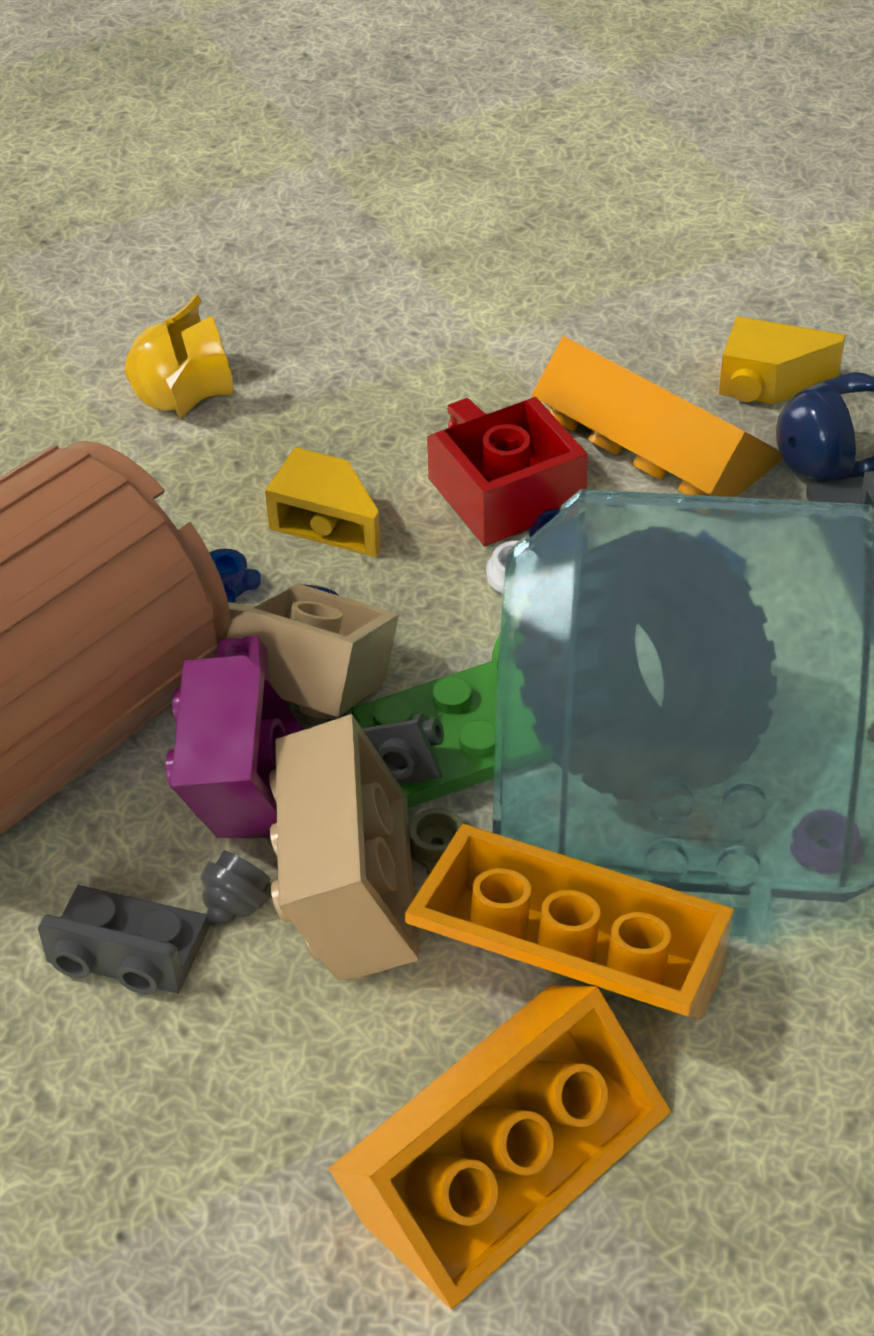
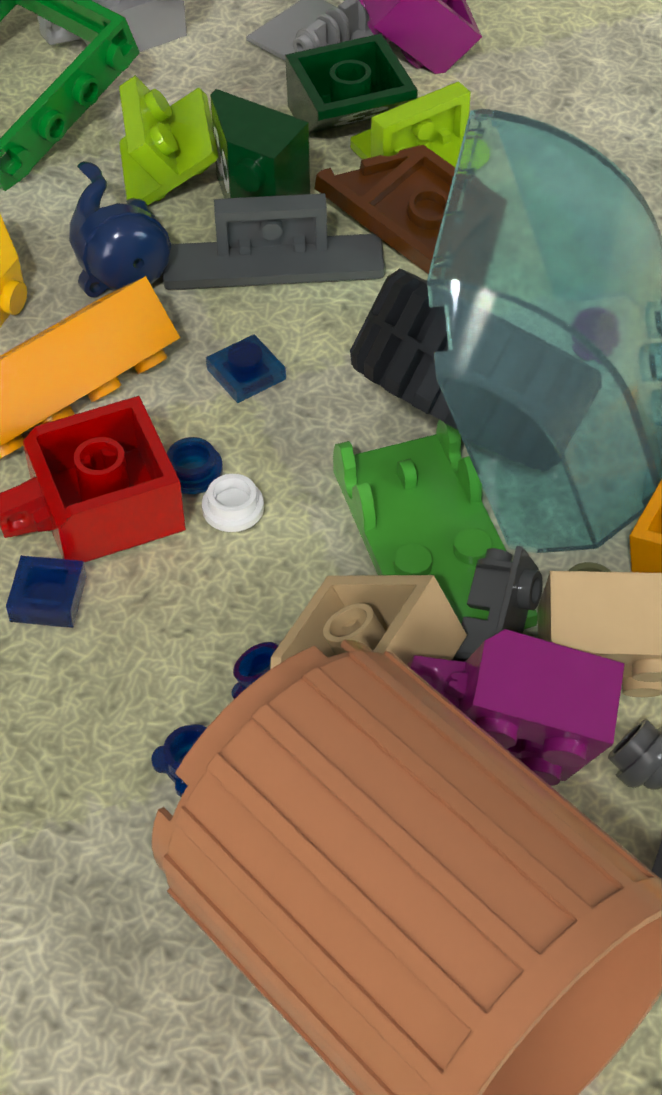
camera: 85 degrees left, 5 degrees up
(323, 502) = (103, 649): yellow slope -> none
(391, 464) = (46, 591): none -> clear blue plate

